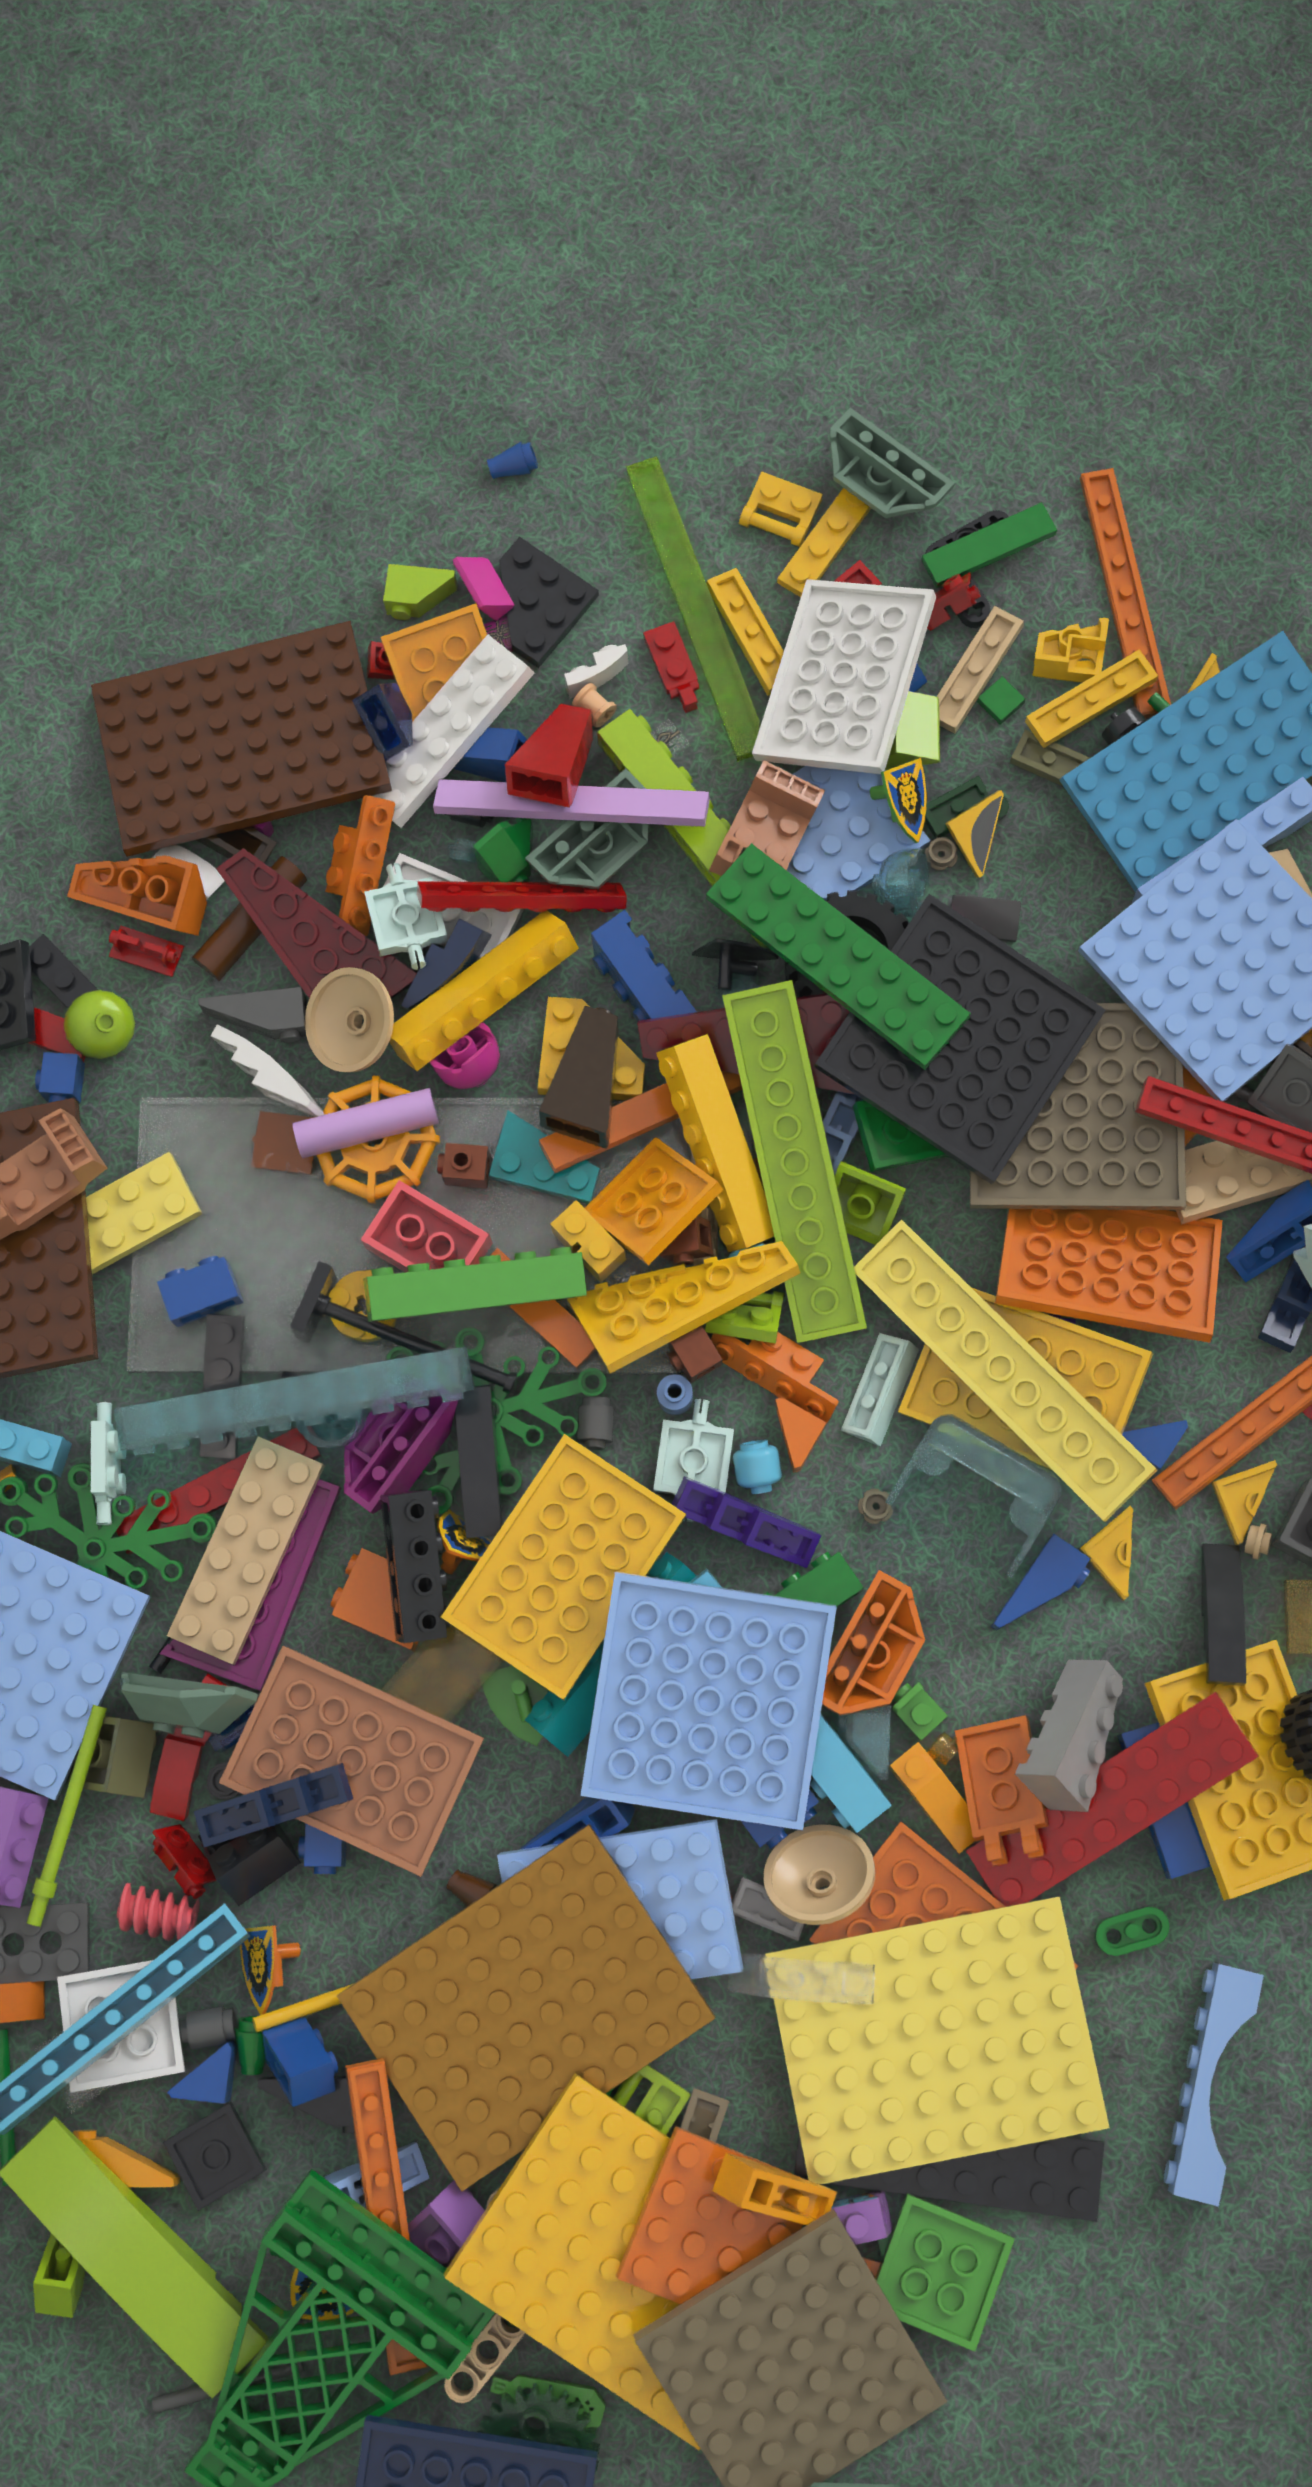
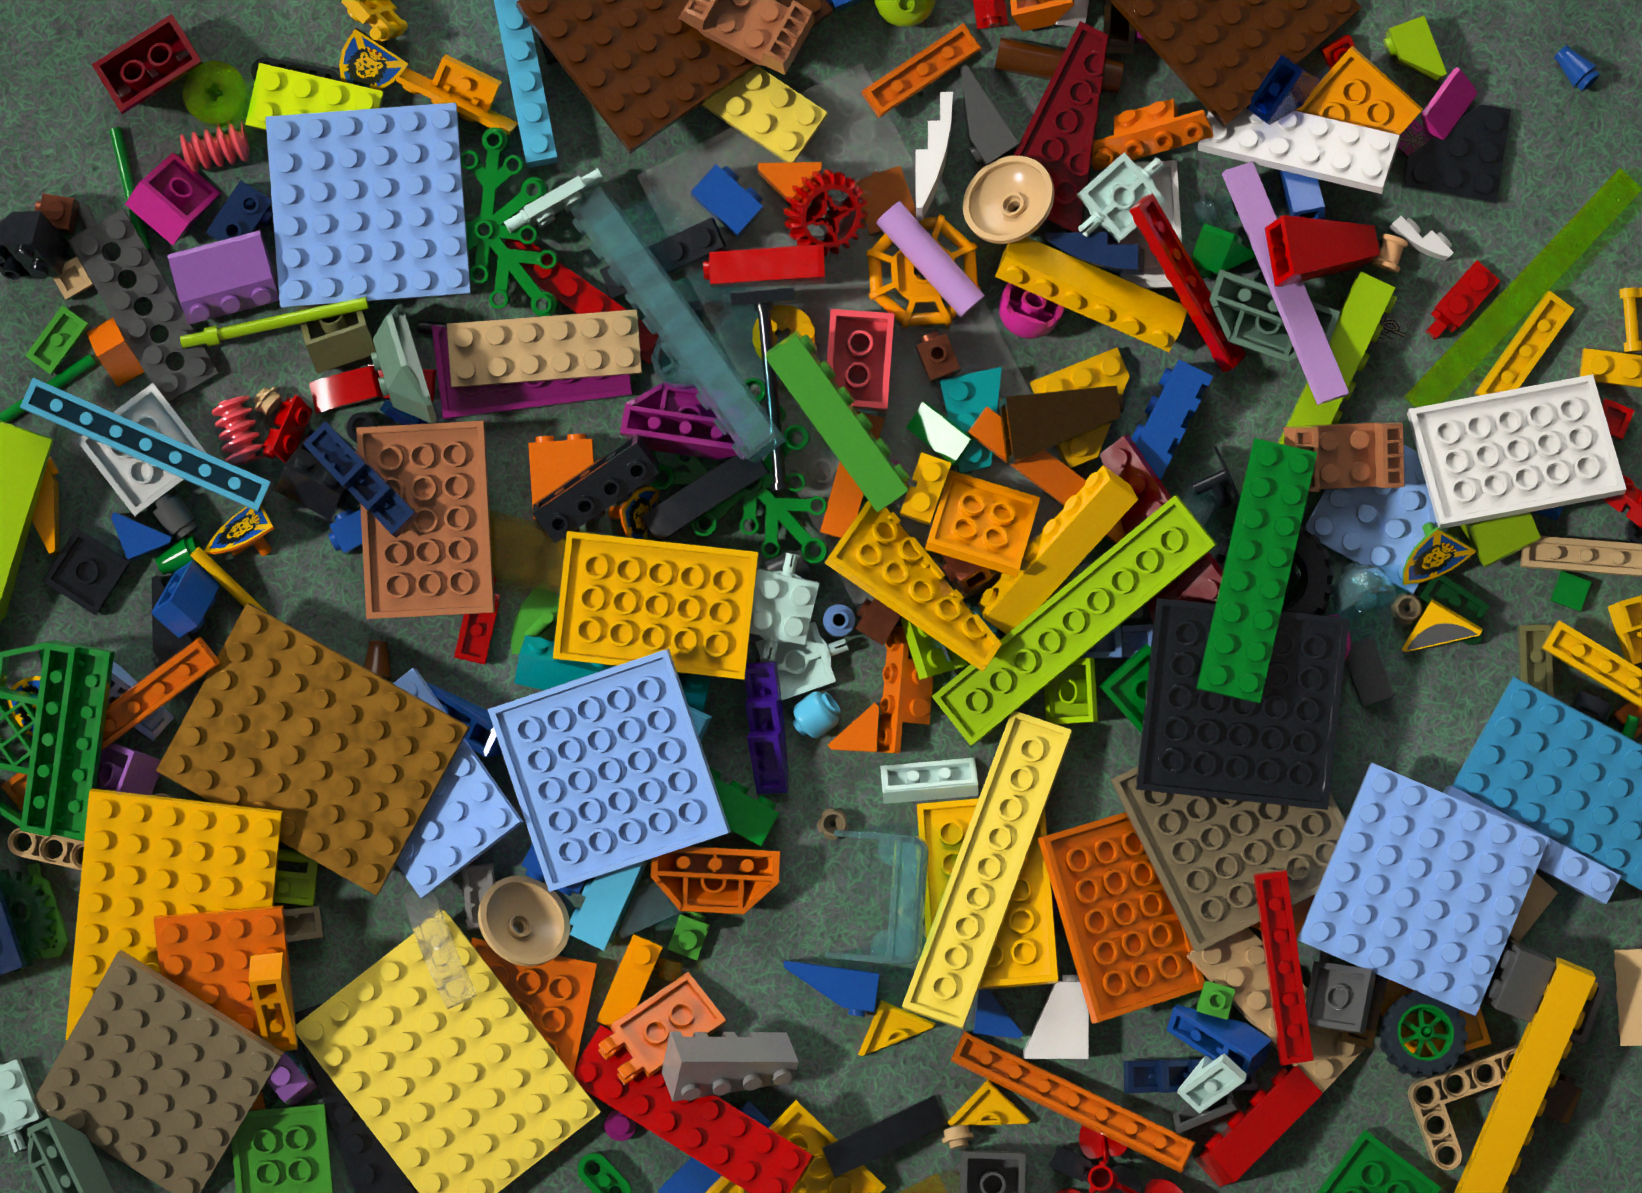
camera: 55 degrees right, 10 degrees up
(144, 1865) = (267, 400): none -> tan plate
(180, 1047) = (921, 70): none -> orange tile
(211, 1221) = (787, 174): none -> orange slope
(247, 1204) = (848, 209): none -> red gear
(285, 1282) = (766, 267): none -> red slope
(498, 1772) = (477, 634): none -> red hinge
(541, 1200) = (940, 433): none -> tile
(632, 1440) = (782, 606): none -> light aqua plate
(1081, 1885) = (619, 1126): none -> magenta plate
(1192, 1379) = (1062, 1024): none -> white slope
(1241, 1215) = (1215, 1000): none -> bright green bracket

